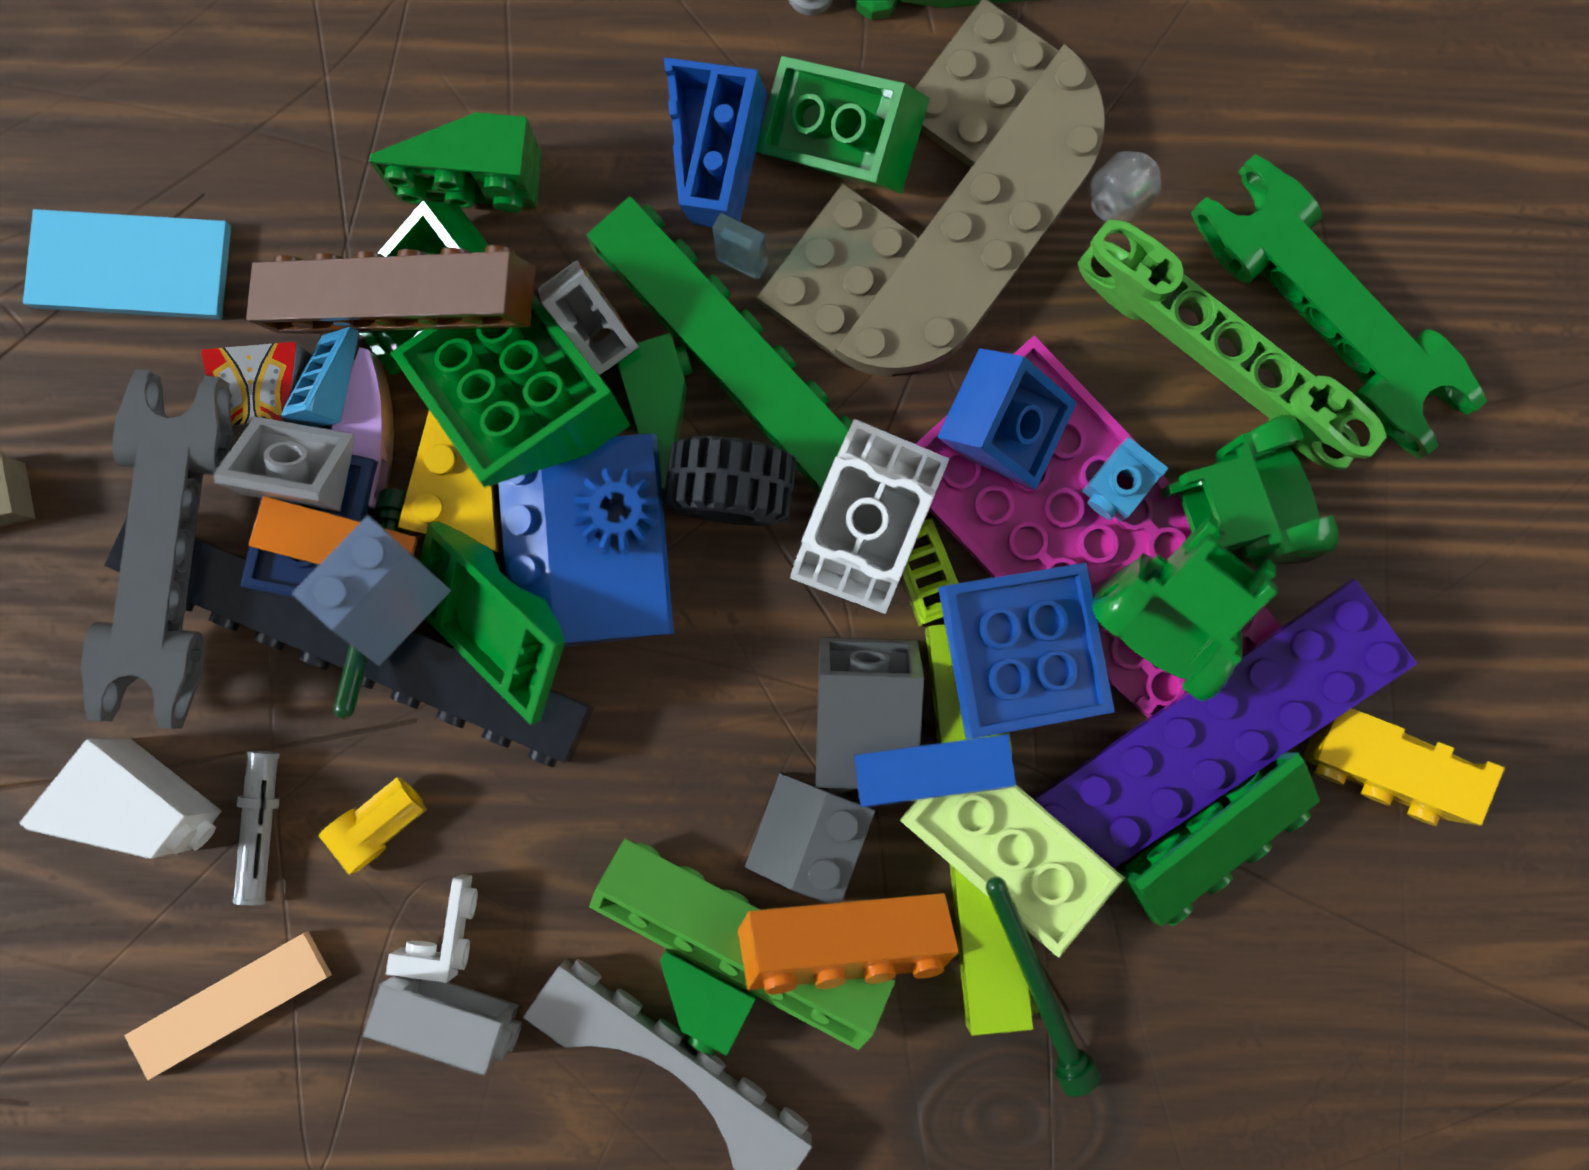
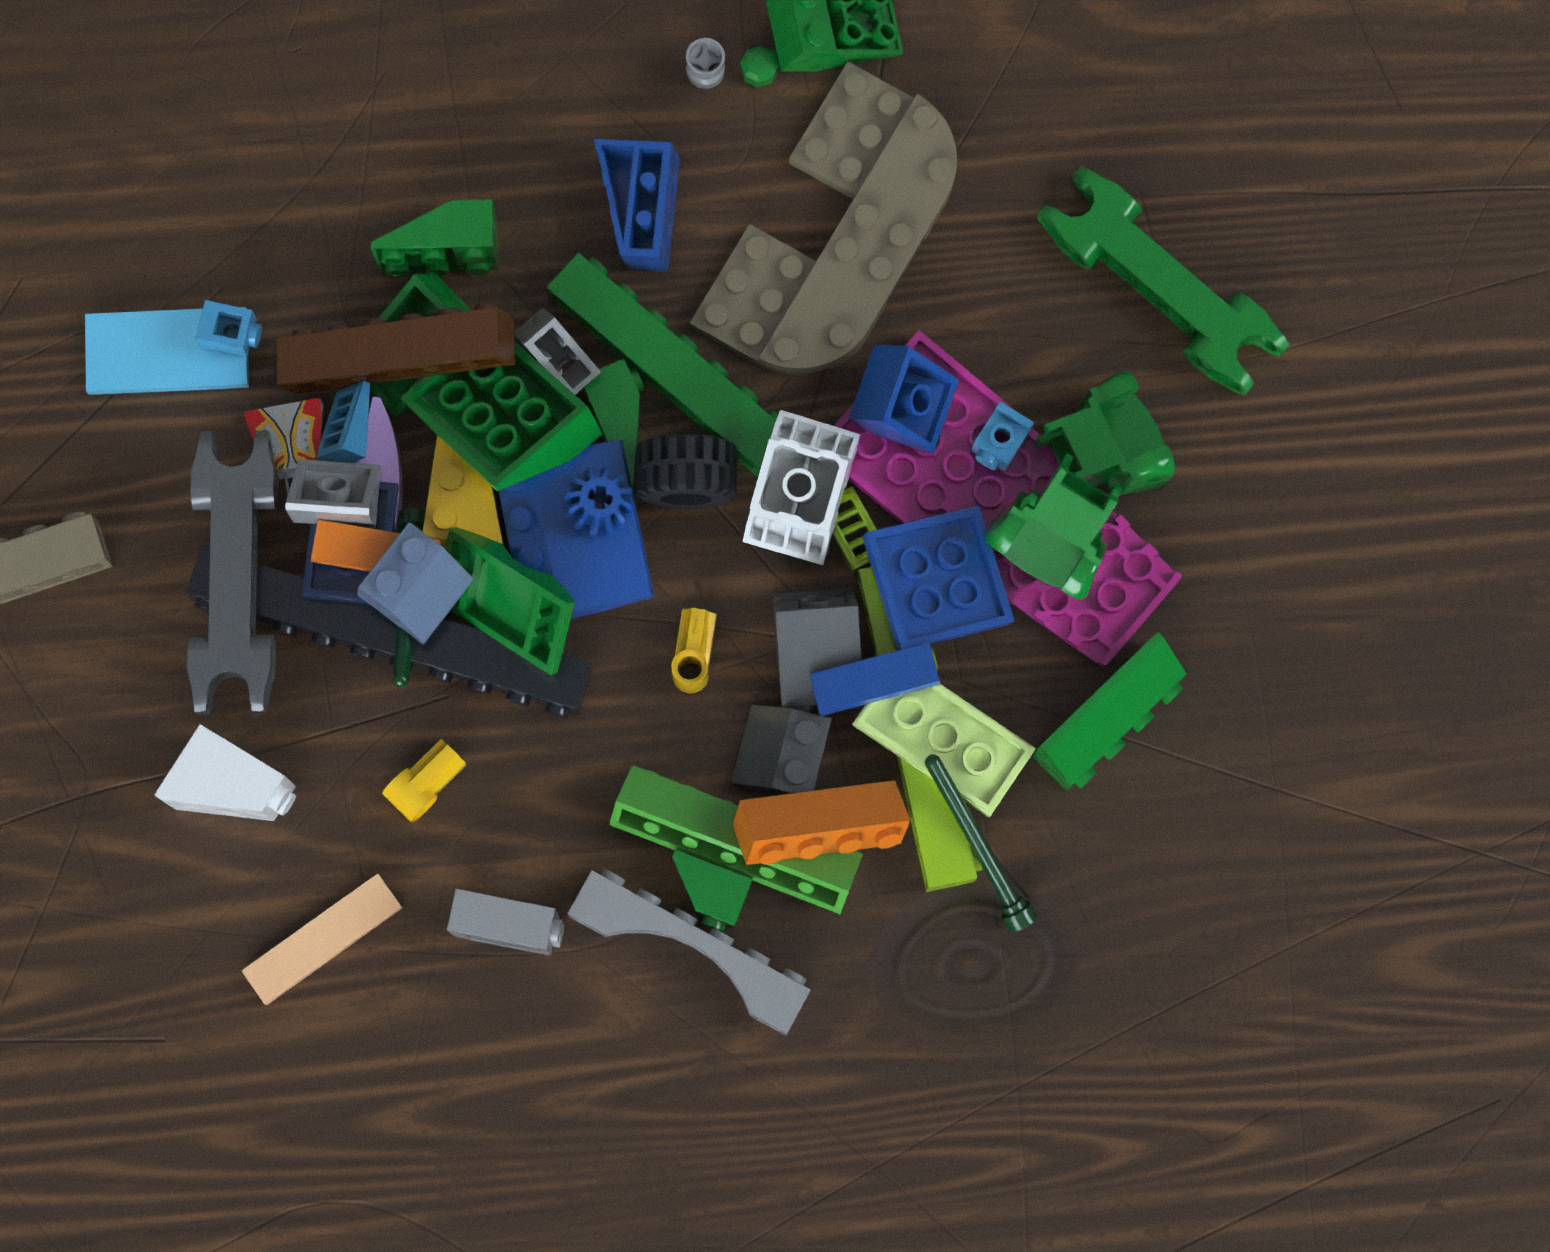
camera: 10 degrees left, 5 degrees down
(183, 235) = (219, 319): none -> dark azure brick
(255, 827) = (328, 792): light grey pin -> none
(420, 958) = (478, 880): white bracket -> none
(718, 695) = (694, 647): none -> yellow piece
(740, 246) = (672, 283): clear light blue tile -> none
(843, 123) = (743, 176): green slope -> none
(1125, 186) = (979, 203): clear head -> none
(1152, 288) = (1008, 283): bright green piece -> none
(1203, 749) = (1108, 627): dark purple plate -> none
(1403, 769) = (1246, 641): yellow wedge -> none

